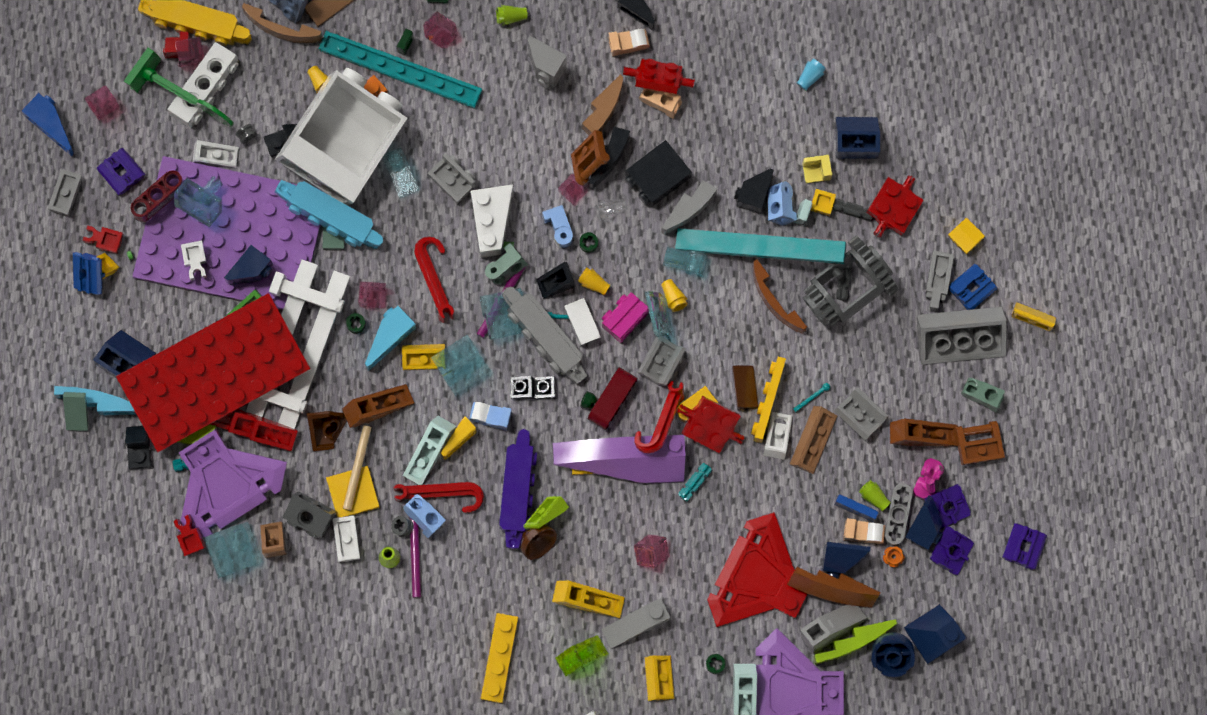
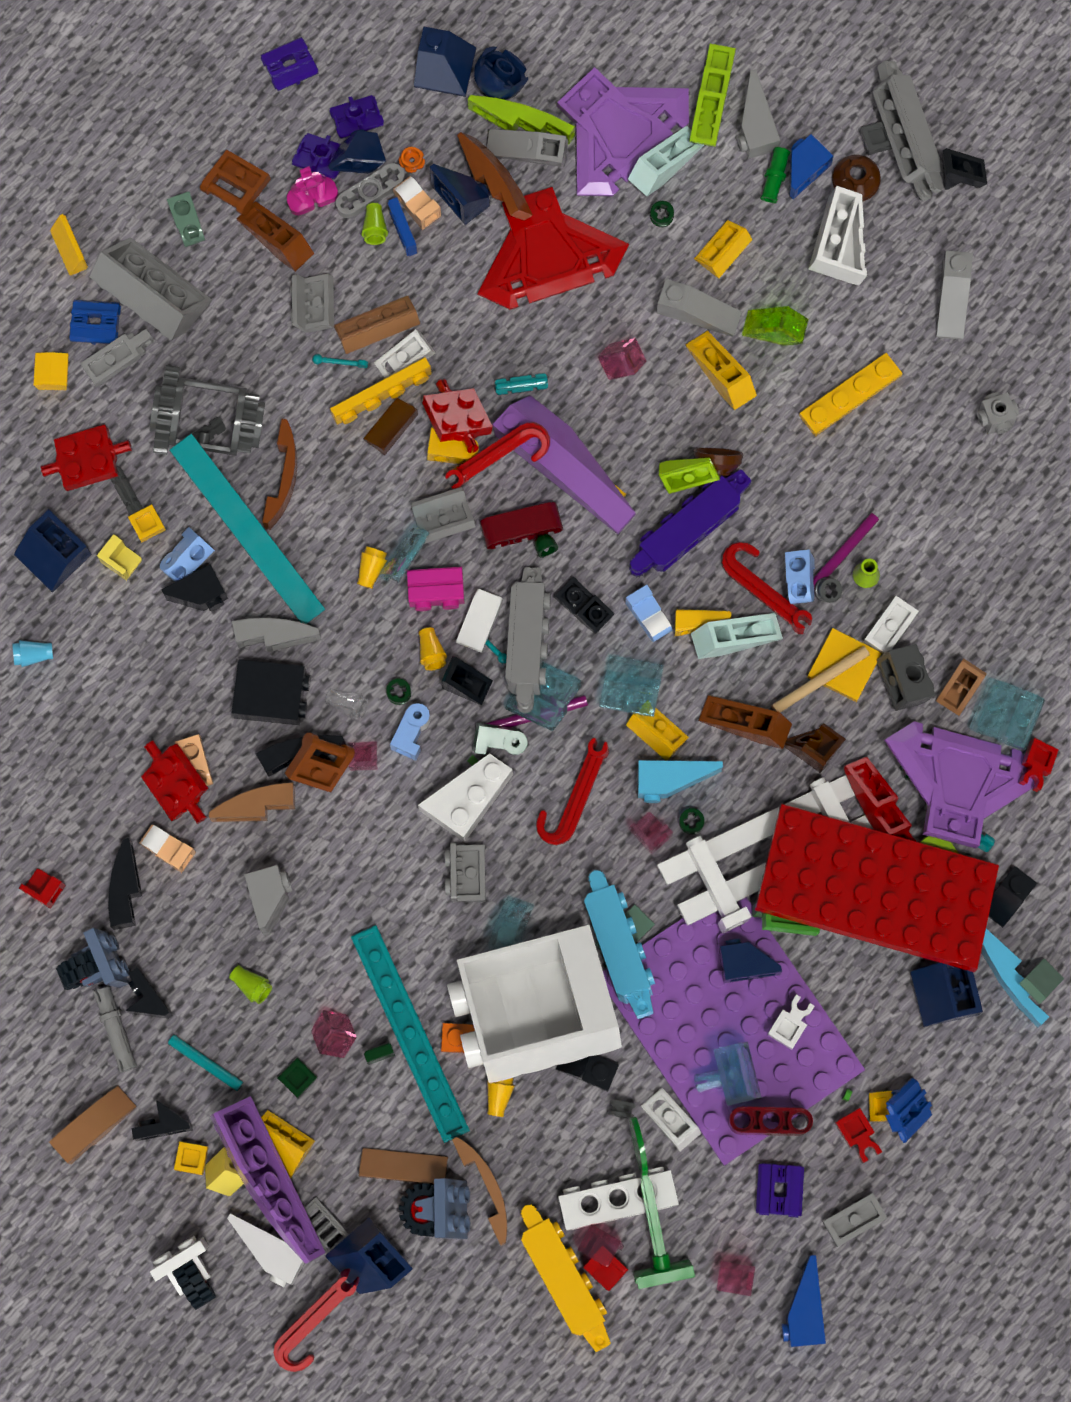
camera: 130 degrees left, 0 degrees up
(689, 261) = (325, 584): clear light blue piece -> none
(803, 211) = (172, 529): light aqua tile -> none

